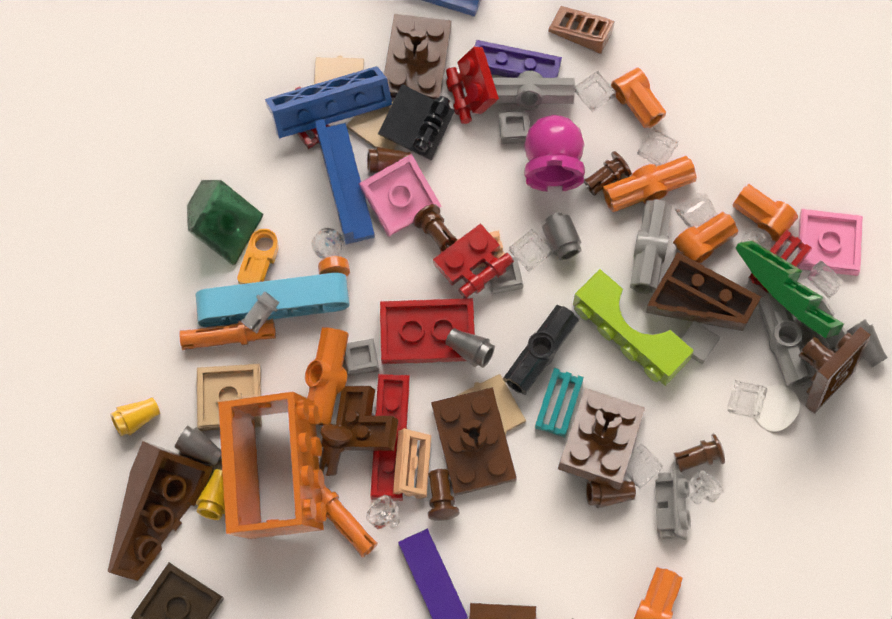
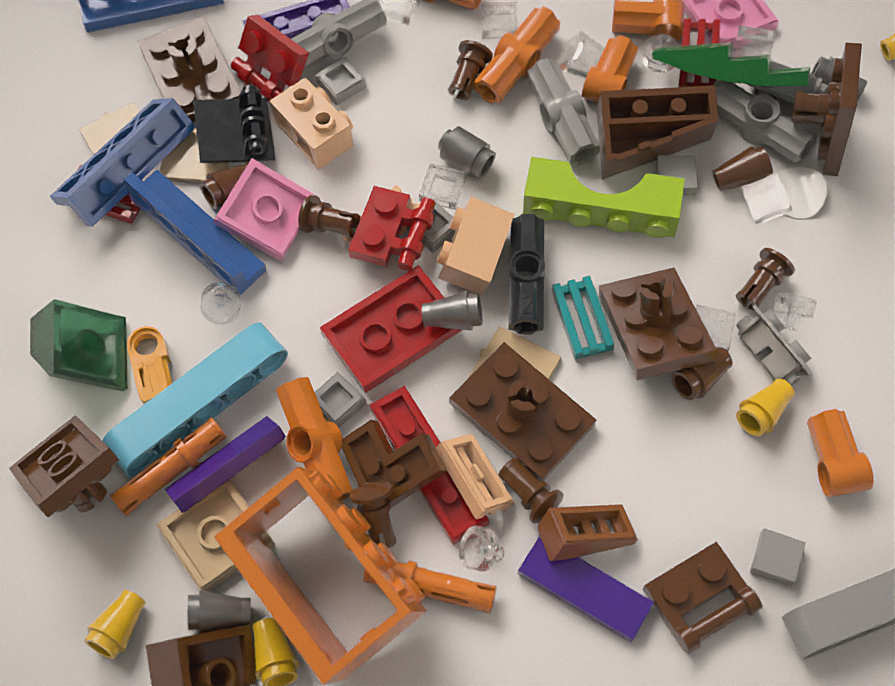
camera: 30 degrees left, 5 degrees down
(161, 297) = (66, 469): none -> reddish brown plate
(260, 311) = (193, 414): light grey pin -> none
(262, 355) = (225, 463): none -> dark purple tile
(334, 264) = (241, 319): orange tile -> none
(447, 529) = (562, 541): none -> dark orange slope
(472, 149) = (312, 122): none -> light nougat brick
(519, 308) = (476, 245): none -> light nougat brick
(554, 154) = (404, 77): dark pink tile -> none
(634, 541) = (763, 409): none -> yellow cone
(746, 368) = (743, 169): none -> reddish brown cone

